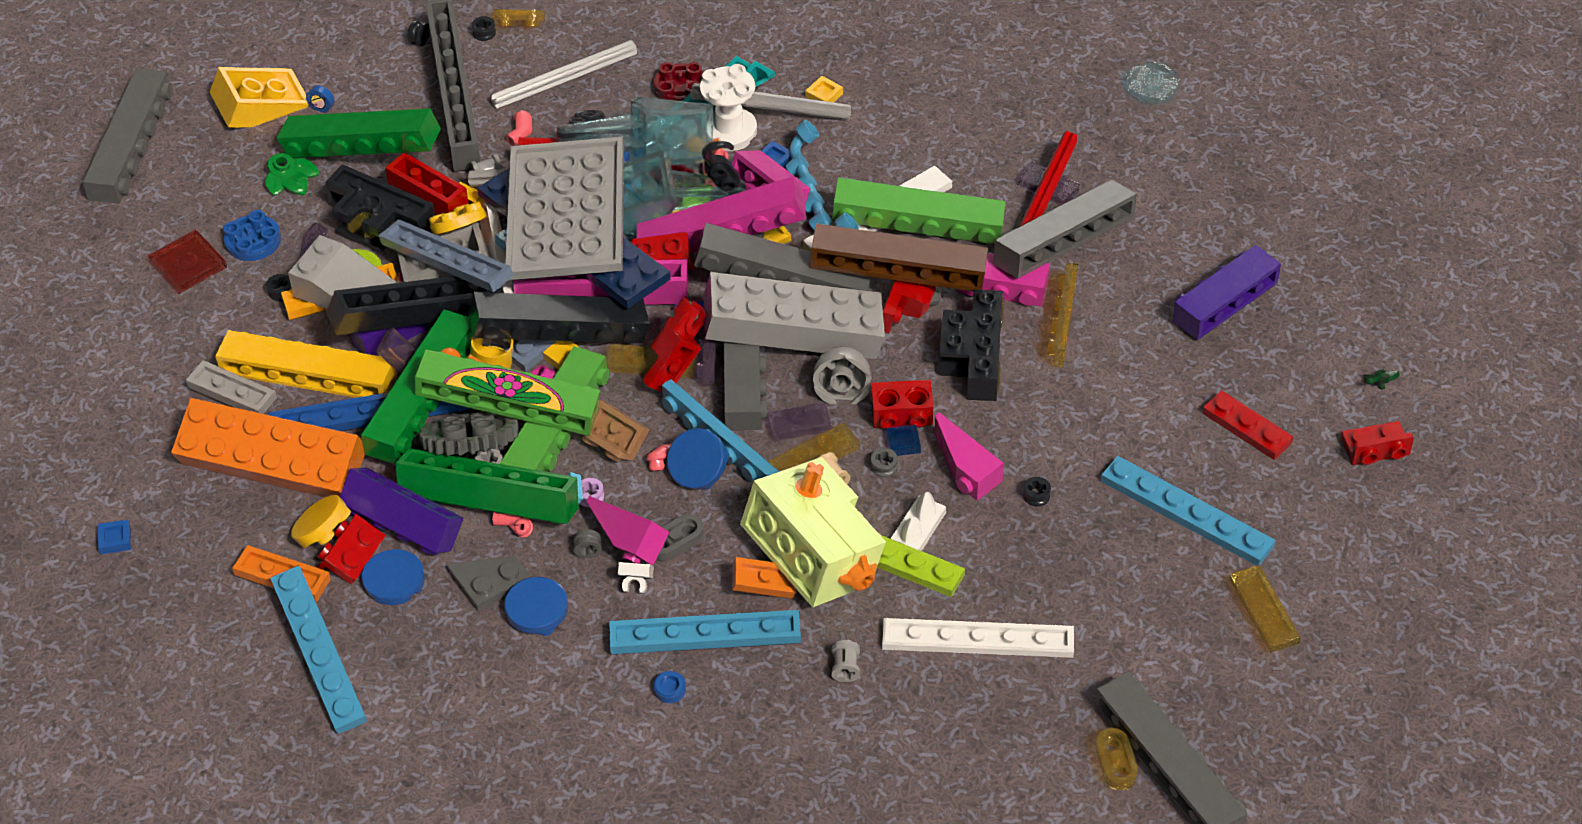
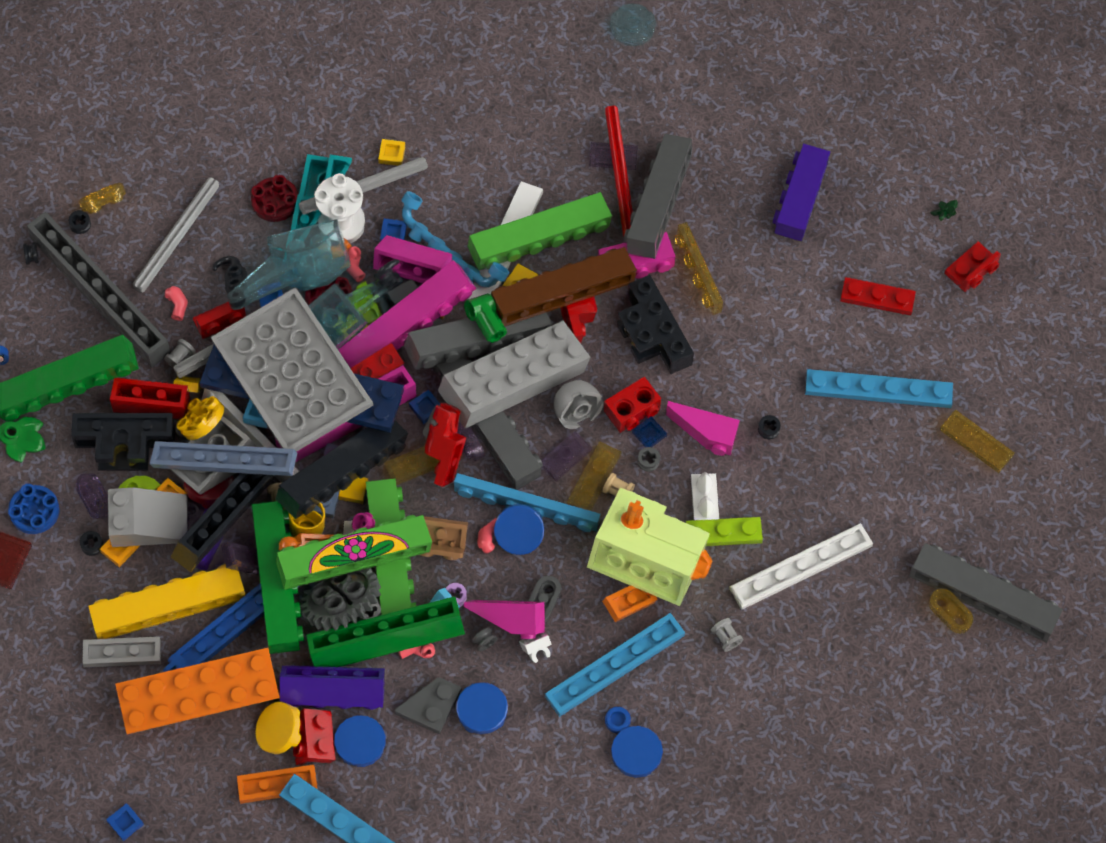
camera: 35 degrees left, 15 degrees up
(667, 726) = (636, 751): none -> blue tile
(796, 244) = (483, 311): none -> green piece

